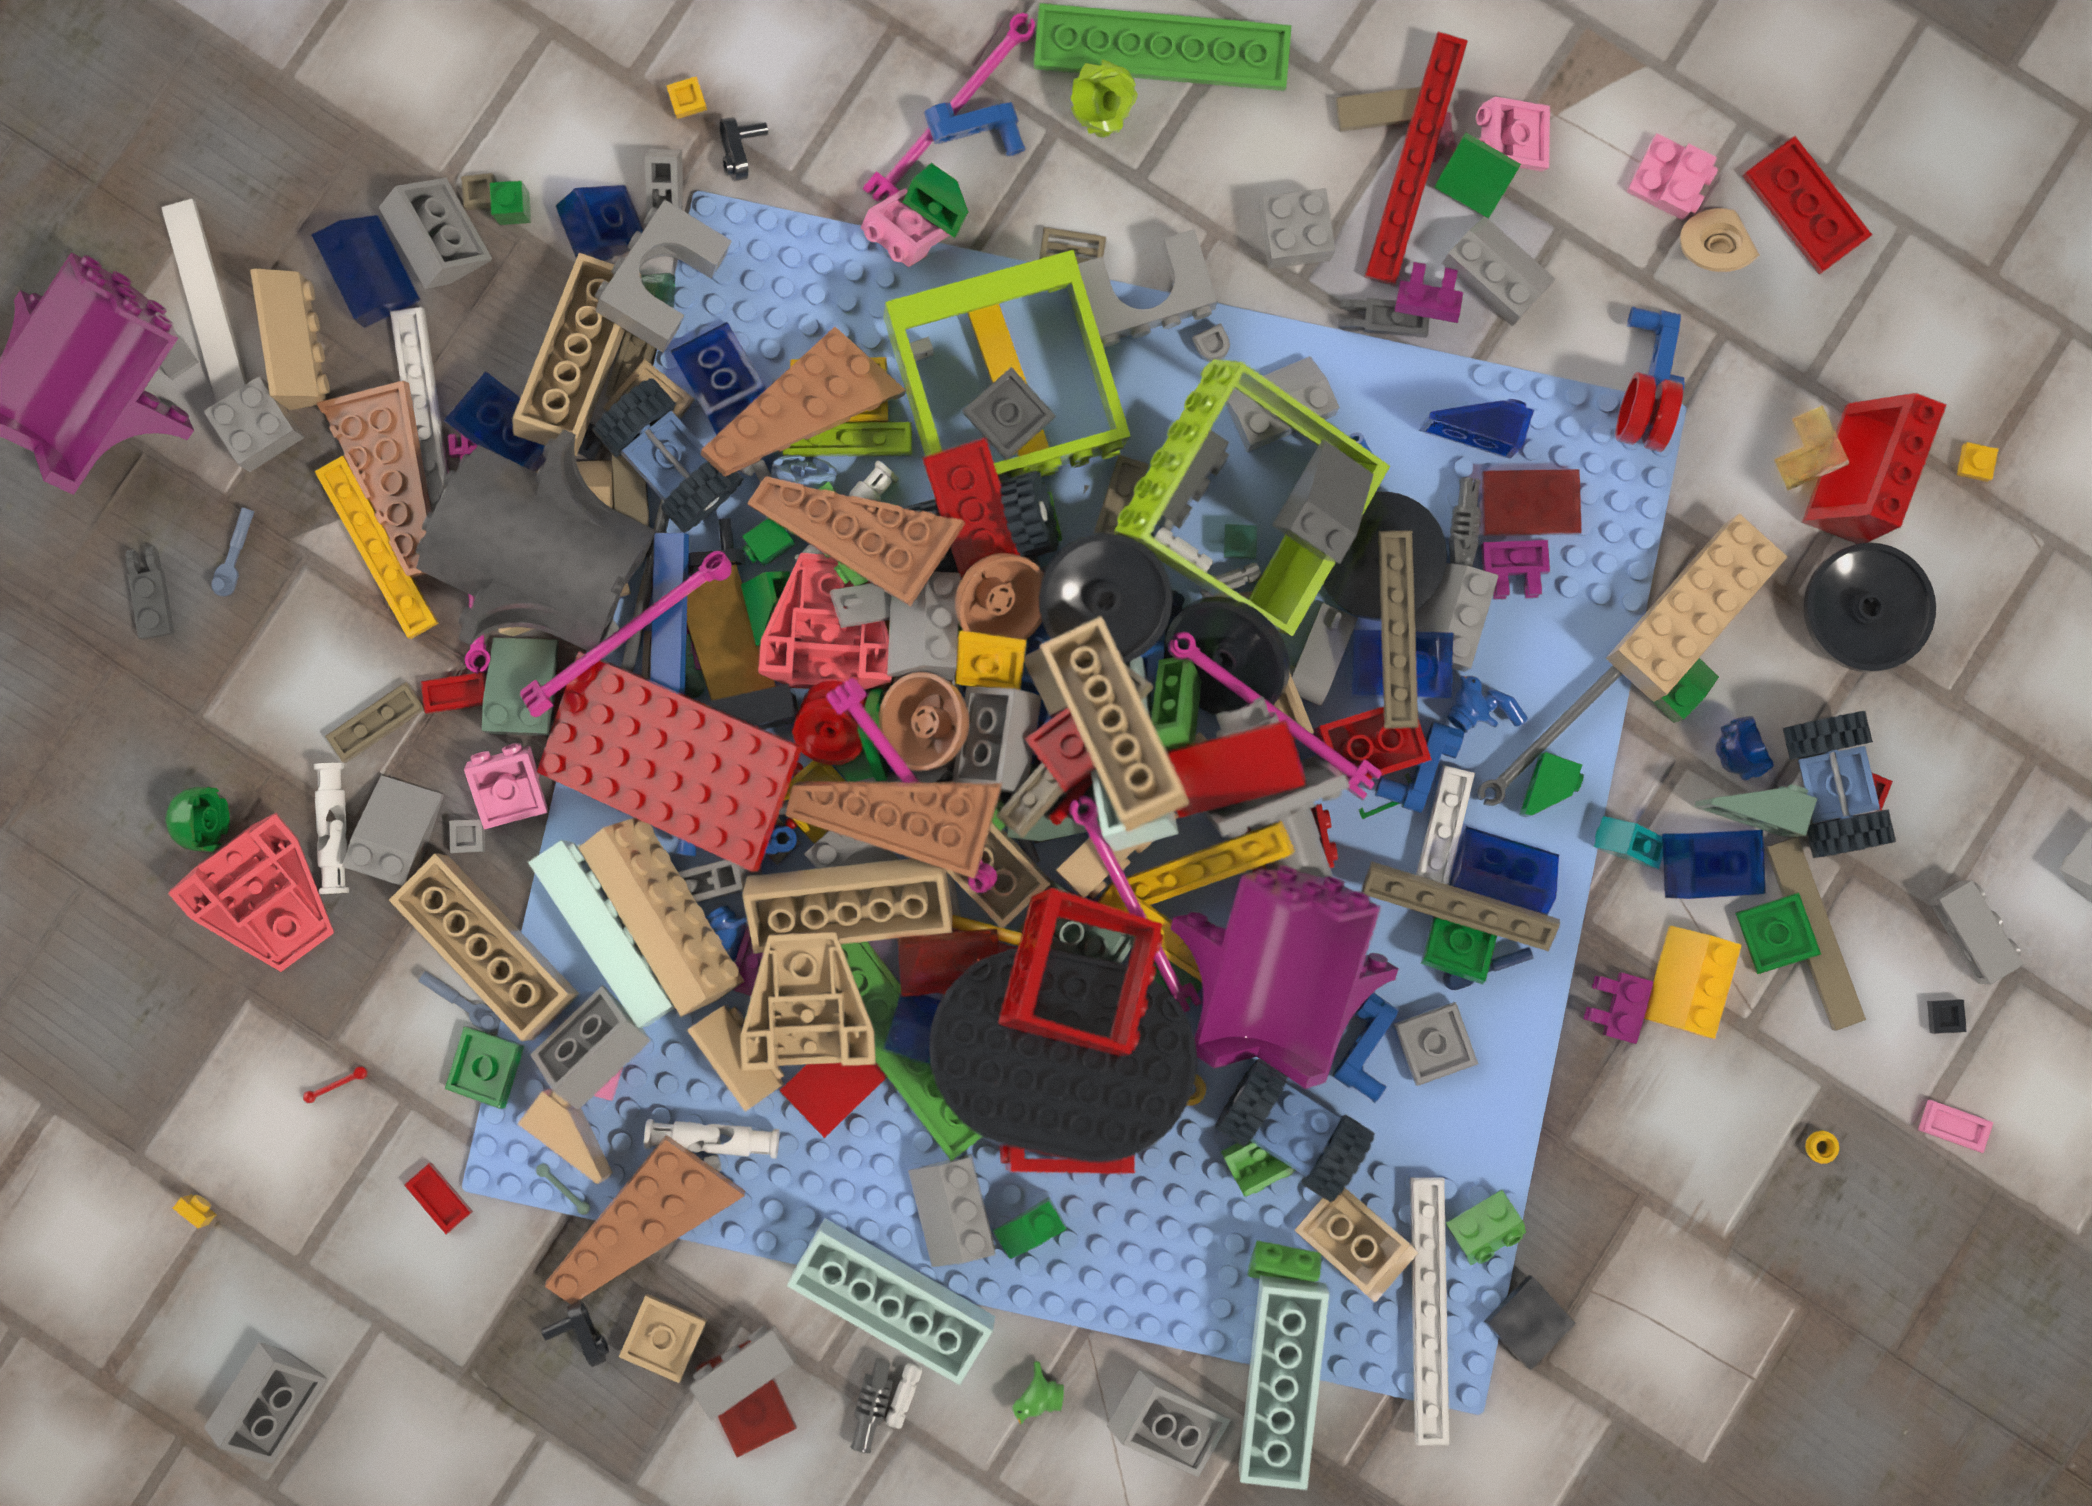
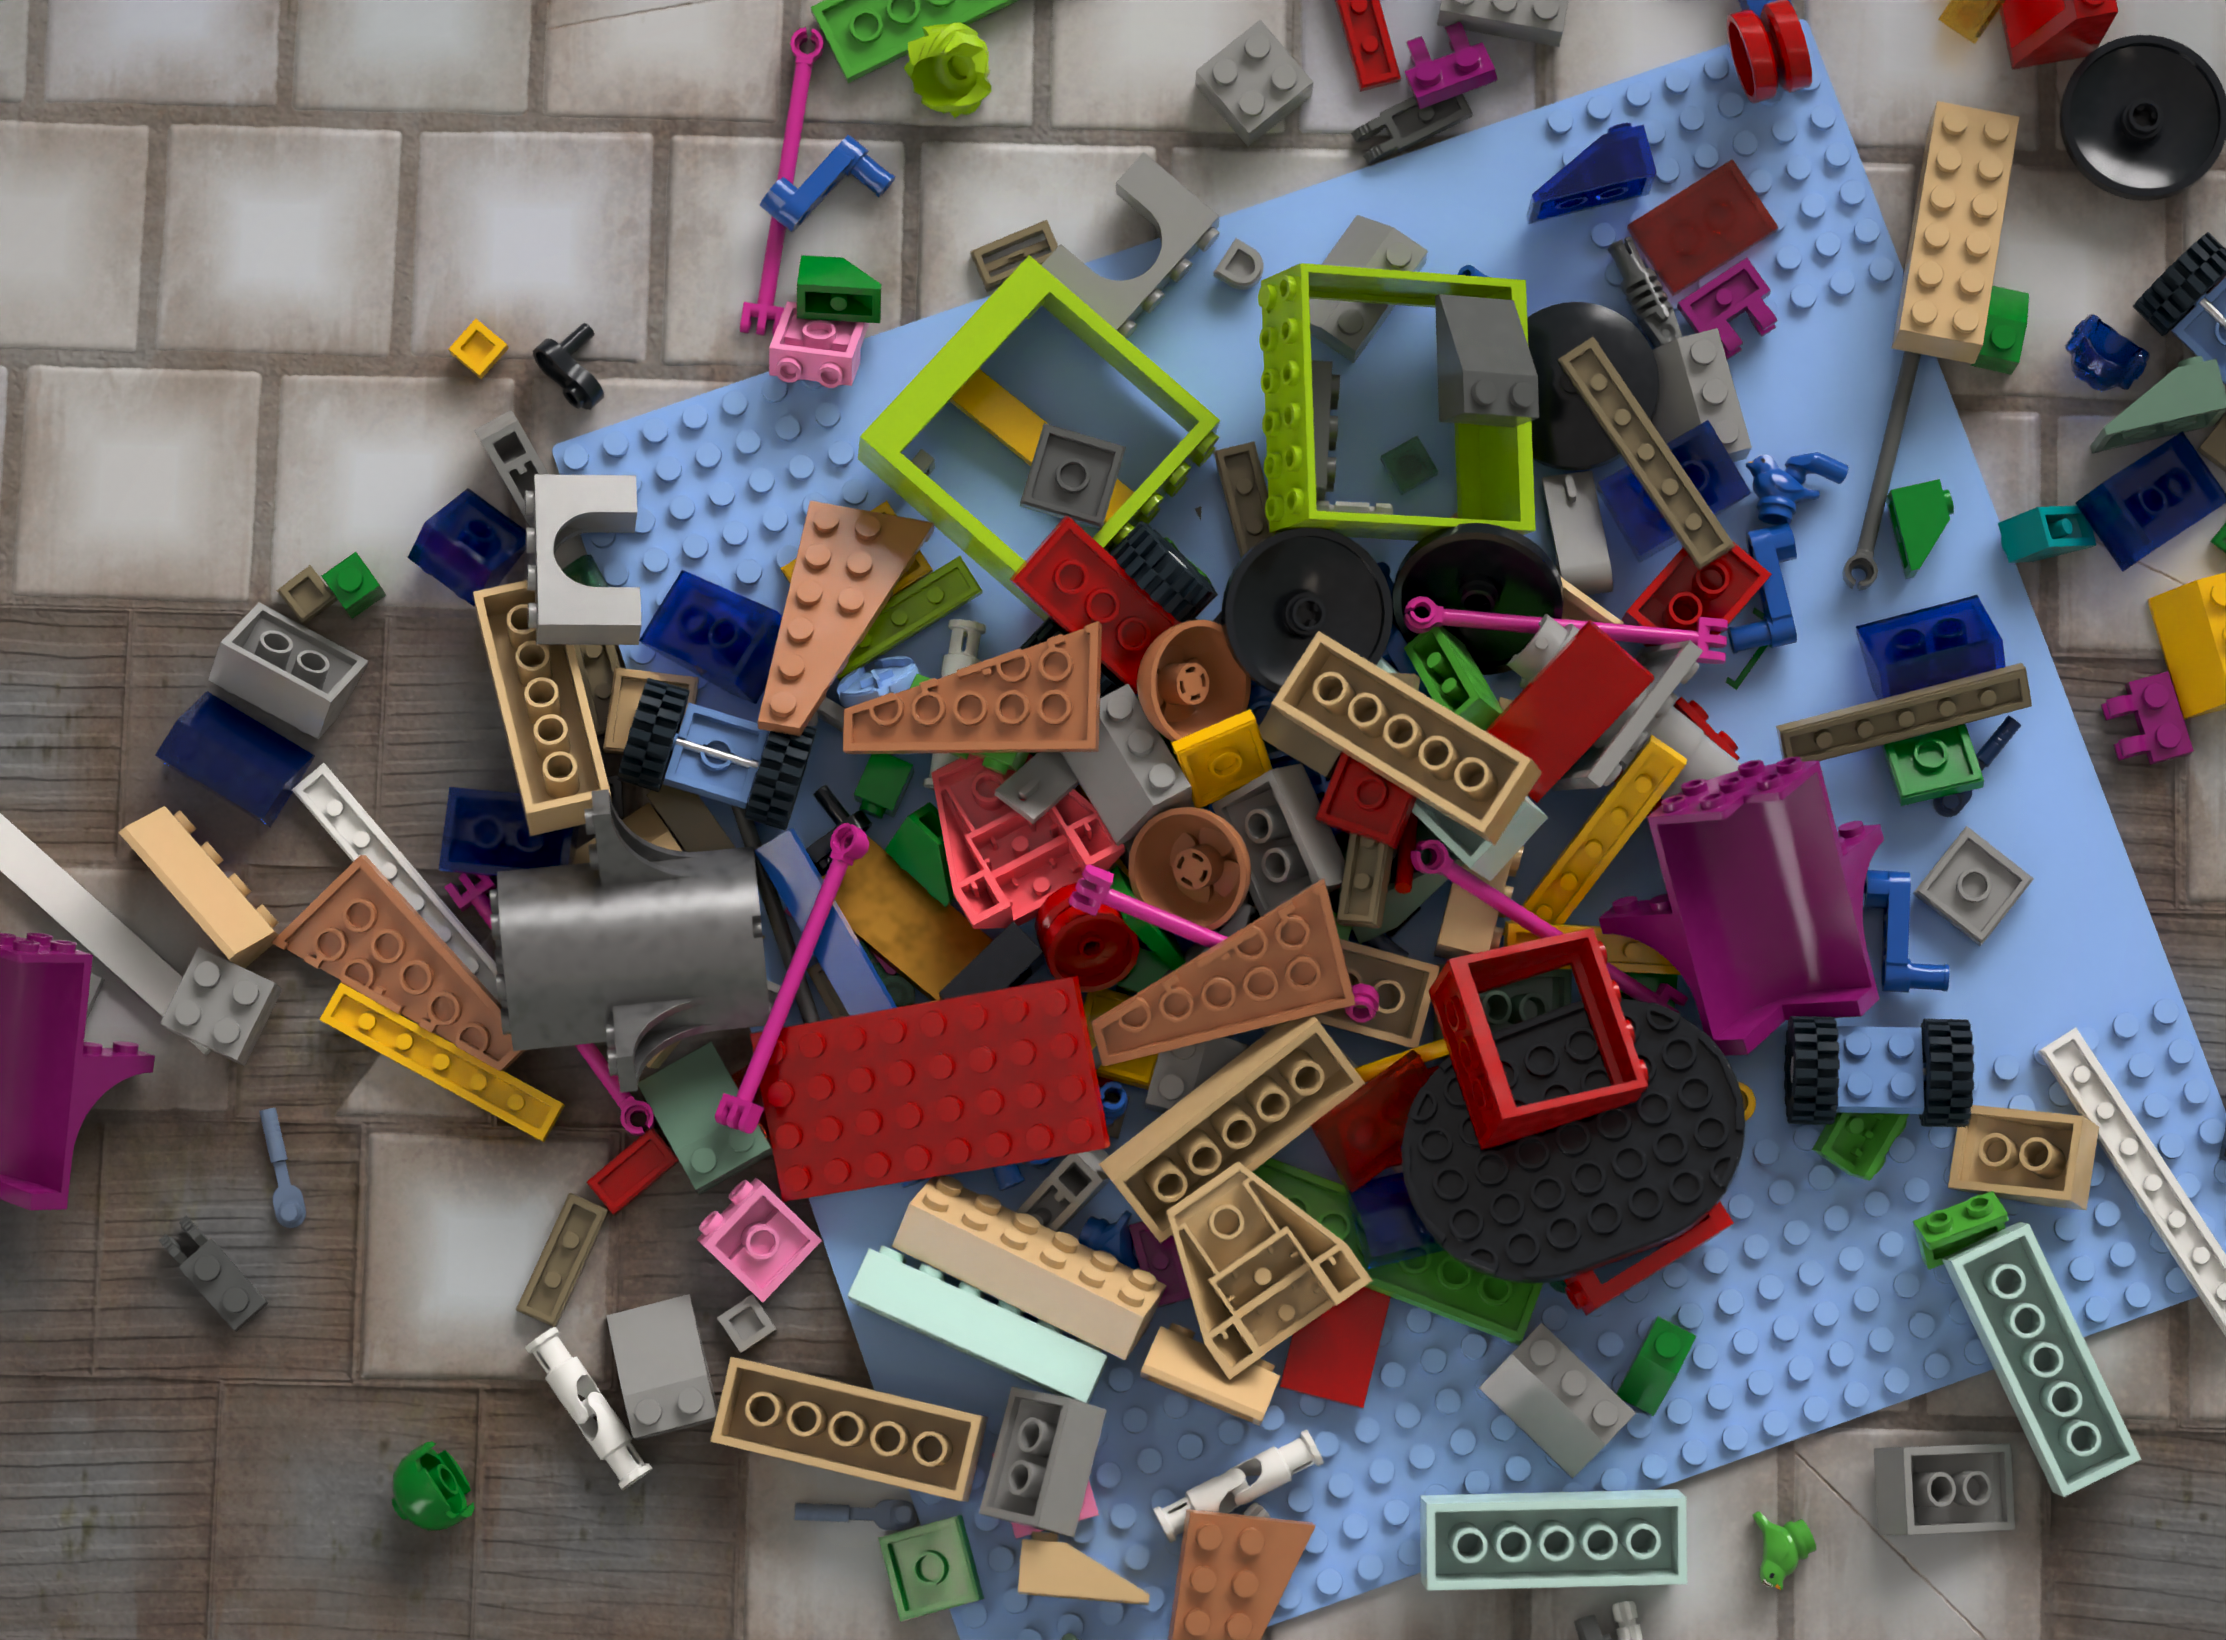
camera: 25 degrees left, 5 degrees down
(258, 895) = (555, 1529): coral wedge -> none
(1236, 578) = (1431, 506): light grey axle -> none
(1445, 824) = (1830, 637): white tile -> none
(1487, 1228) = (2158, 1052): bright green bracket -> none

